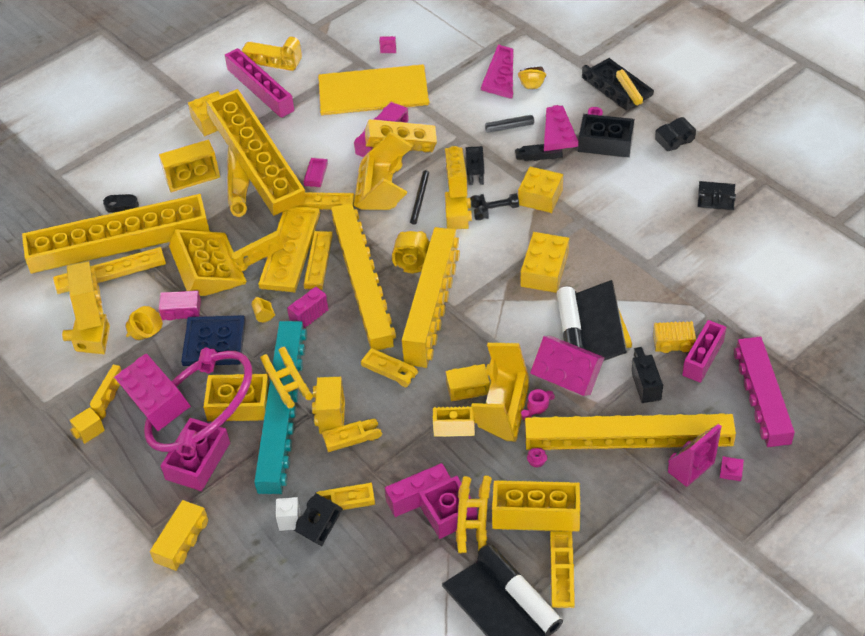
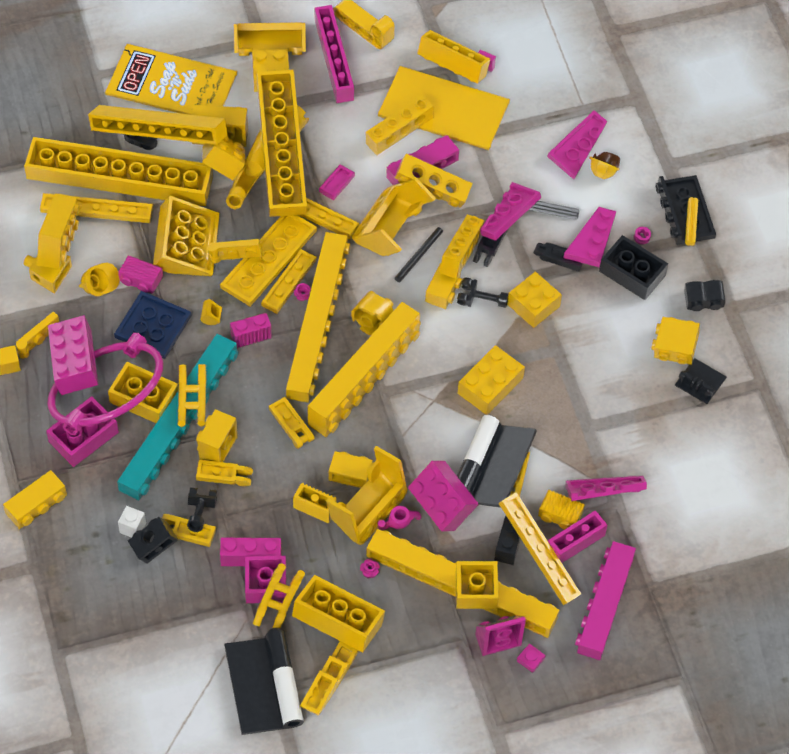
camera: 20 degrees right, 10 degrees up
(121, 155) = (168, 80): none -> yellow piece
(134, 180) = (158, 124): none -> yellow brick
(179, 95) = (269, 37): none -> yellow windscreen
(207, 183) = (225, 157): none -> yellow brick
(336, 262) = (303, 287): none -> dark pink plate
(345, 110) = (399, 124): none -> yellow brick
(351, 484) = (196, 521): none -> black bar
(360, 49) = (453, 56): none -> yellow brick
(477, 134) = (513, 206): none -> dark pink wing
(650, 421) = (476, 585): none -> yellow brick
(678, 172) = (676, 340): none -> yellow brick
(682, 371) = (539, 548): none -> yellow plate
(695, 304) = (604, 486): none -> dark pink wing

